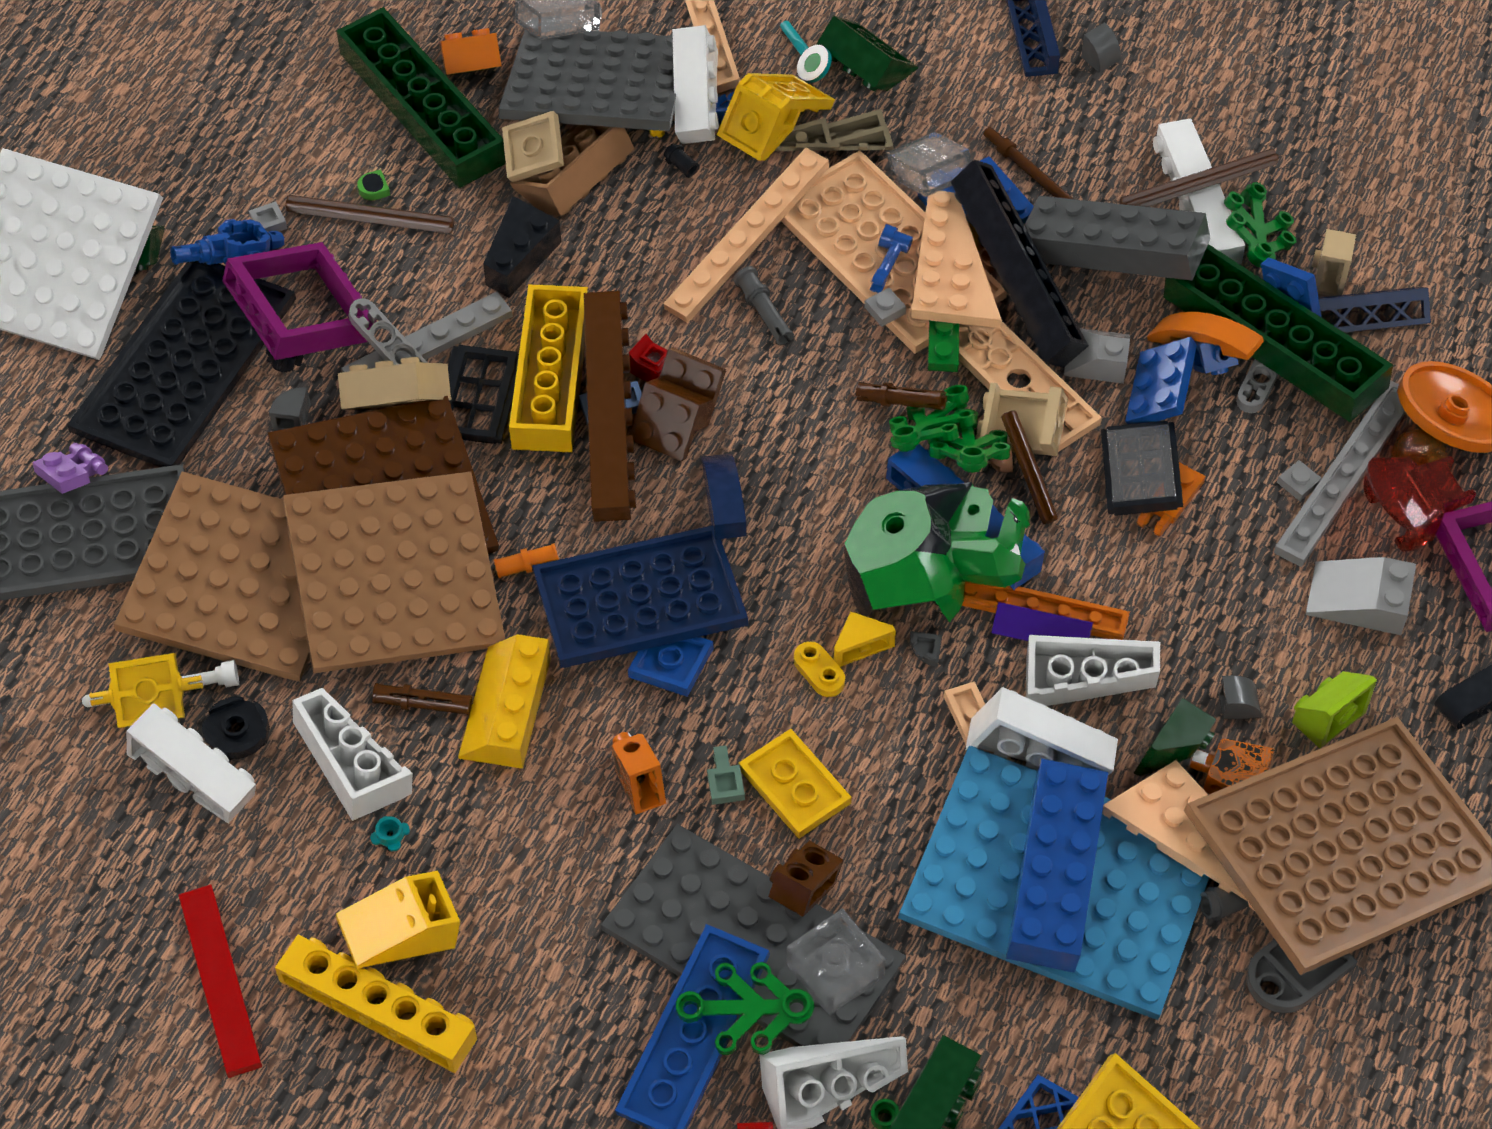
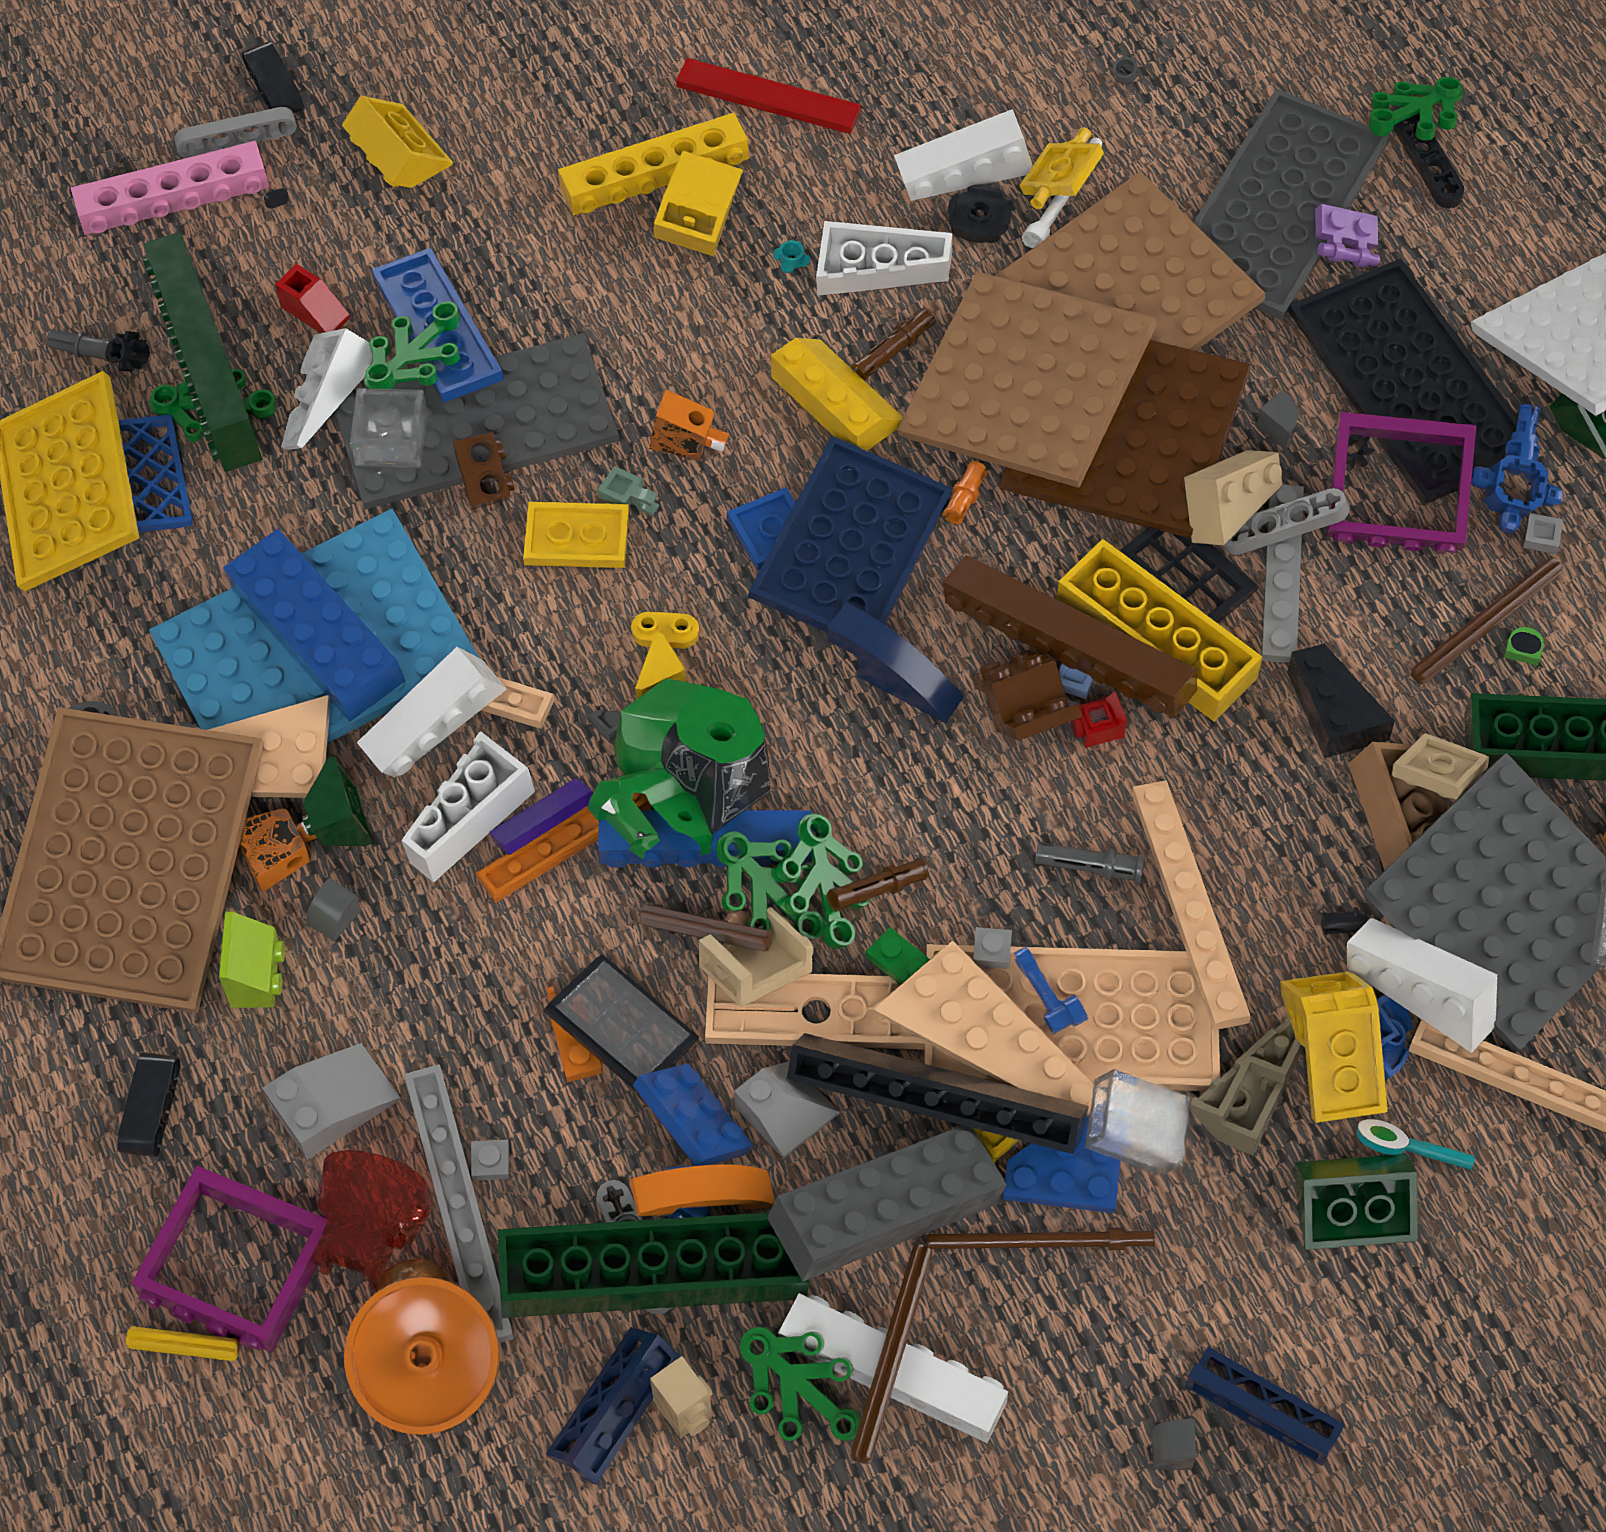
camera: 130 degrees right, 5 degrees up
(1292, 282) = (677, 1310): blue plate -> none

